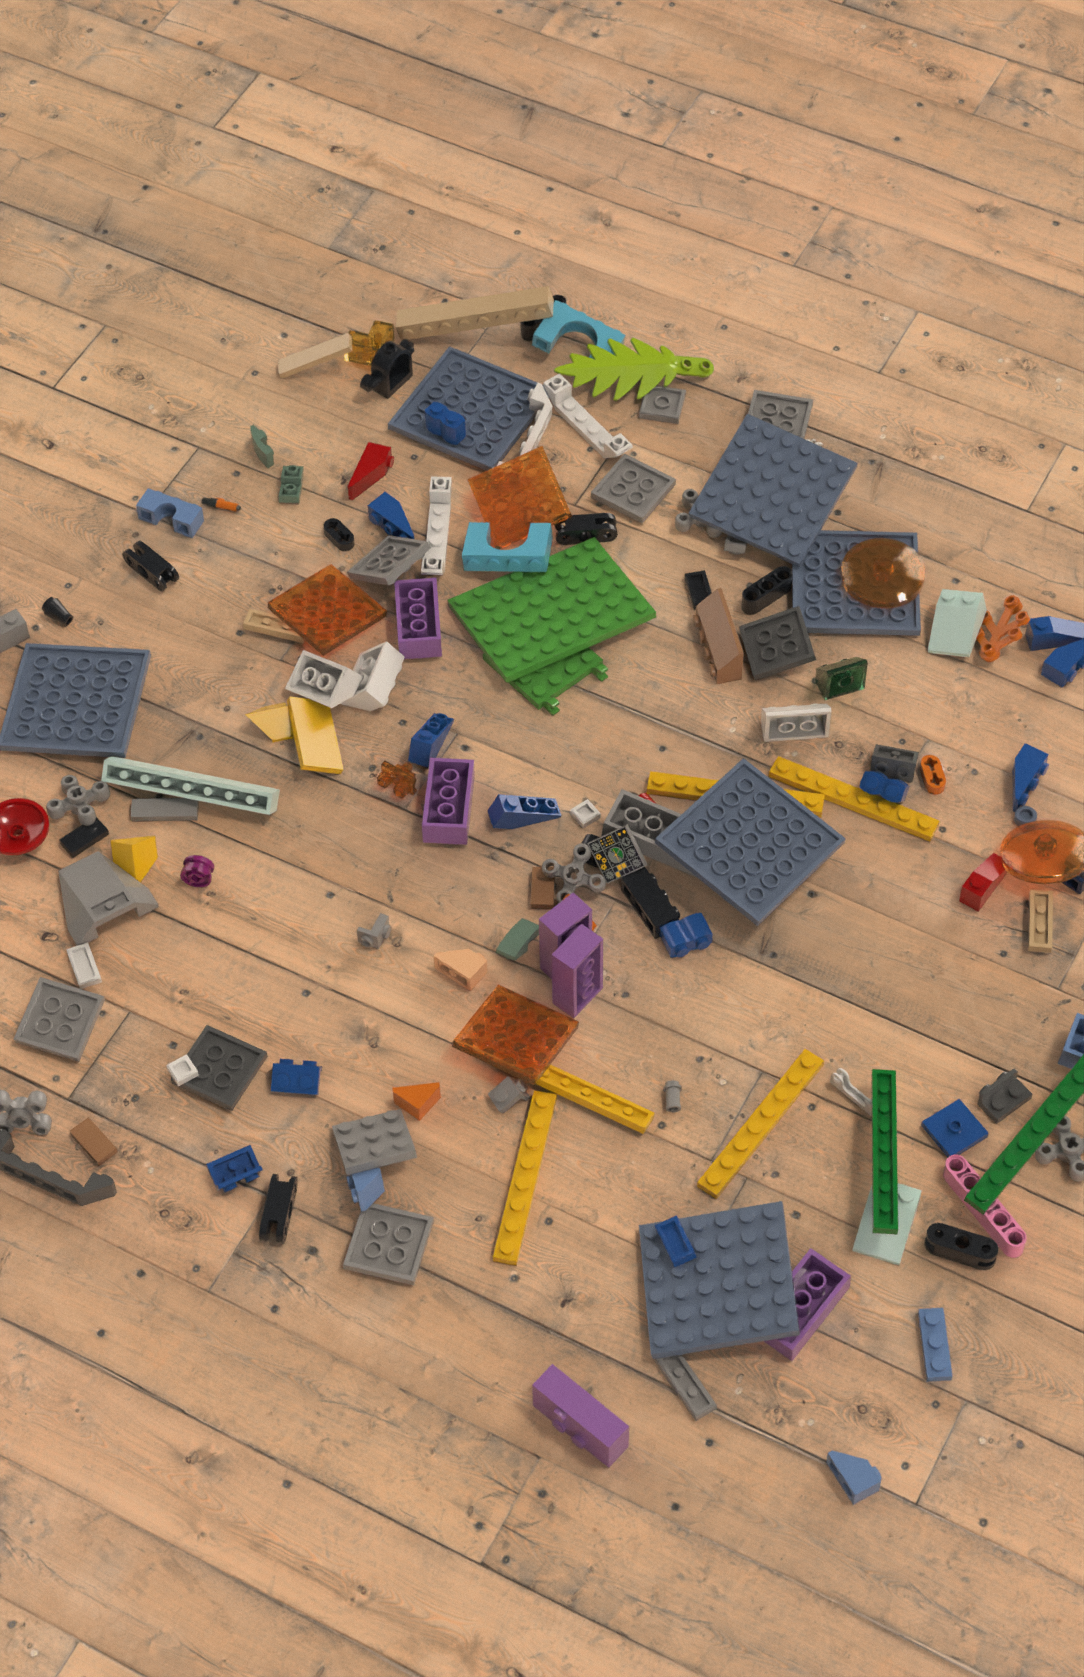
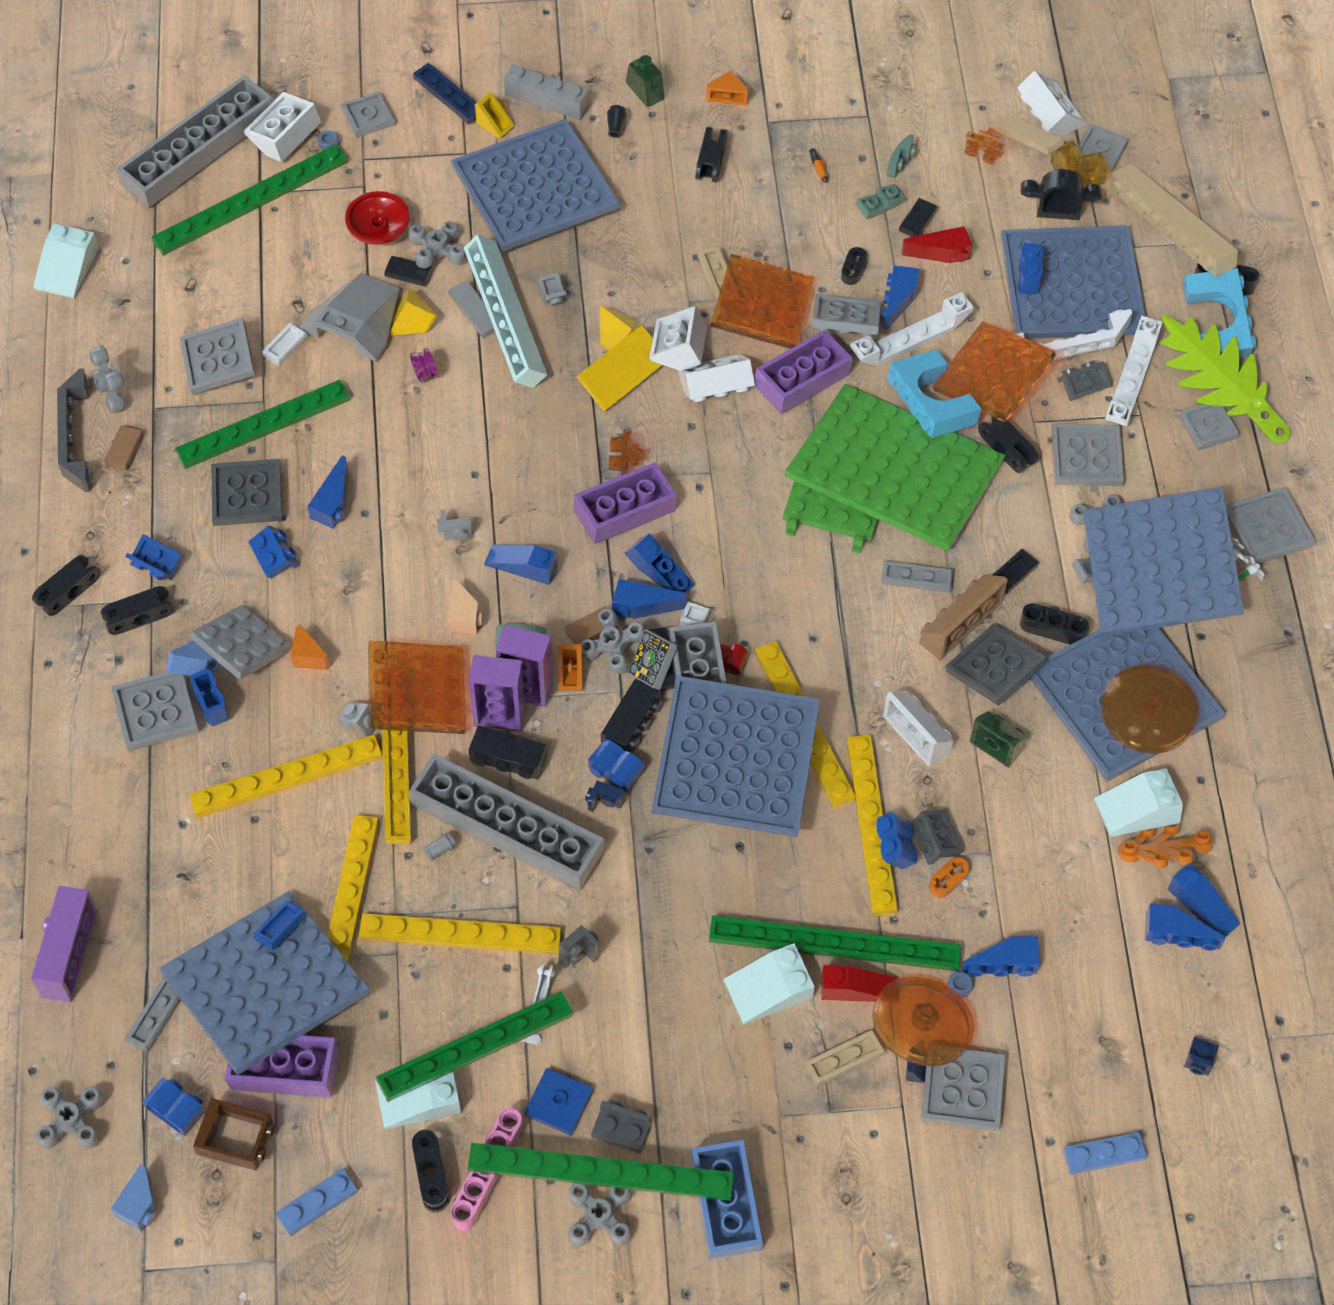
camera: 55 degrees right, 5 degrees up
(37, 567) = (645, 80): none -> clear green torso
(96, 519) = (727, 90): none -> orange slope
(154, 1024) = (262, 424): none -> green plate
(156, 505) = (776, 122): medium blue arch -> none
(182, 1070) = (222, 466): white tile -> none
(193, 744) = (551, 289): none -> light grey bracket
(208, 1251) = (66, 585): none -> black piece
(276, 1004) = (330, 500): none -> blue slope
(294, 329) = (1050, 104): none -> white slope
(296, 386) = (986, 142): none -> clear orange hips
(328, 470) = (918, 218): none -> black tile
(356, 319) = (1104, 141): none -> light grey tile
(407, 1191) = (209, 697): none -> blue brick
(429, 739) = (680, 454): blue slope -> none
(446, 900) = (524, 560): none -> blue slope
(547, 837) = (642, 600): none -> blue slope
(566, 451) = (1085, 381): none -> dark grey bracket
(621, 1003) = (507, 752): none -> black brick
(658, 652) = (916, 576): none -> light grey tile
(658, 1174) = (352, 883): none -> yellow plate
(686, 1034) = (507, 821): none -> light grey brick
(708, 956) = (607, 794): none -> dark blue bracket
(746, 1501) = (75, 1124): none -> light grey gear
(784, 1407) = (174, 1106): none -> blue brick
(822, 1390) = (210, 1124): none -> reddish brown window
(836, 1038) = (576, 944): none -> dark grey bracket
(939, 876) = (835, 943): none -> green plate
(948, 934) = (770, 984): none -> light aqua slope

